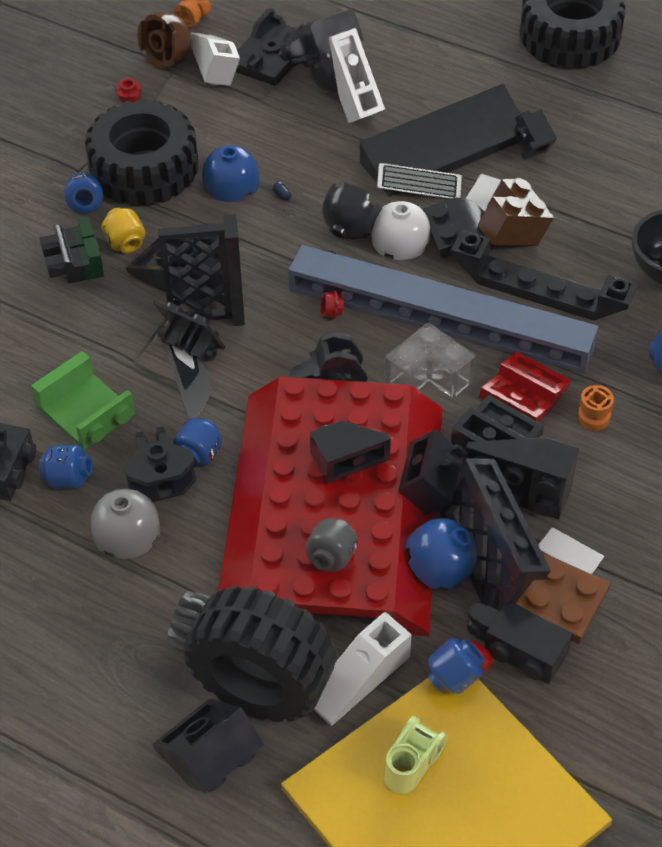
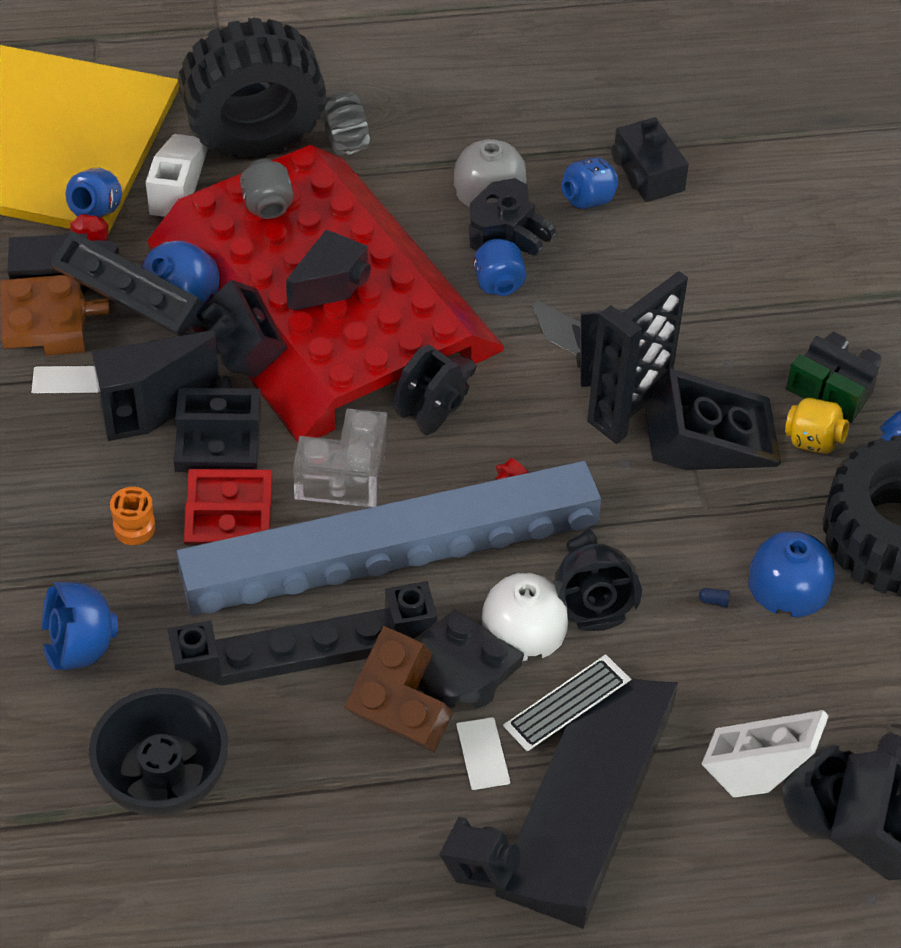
camera: 140 degrees right, 0 degrees up
(81, 401) = (640, 251): bright green panel -> none
(415, 749) = (82, 124): yellowish green piece -> none

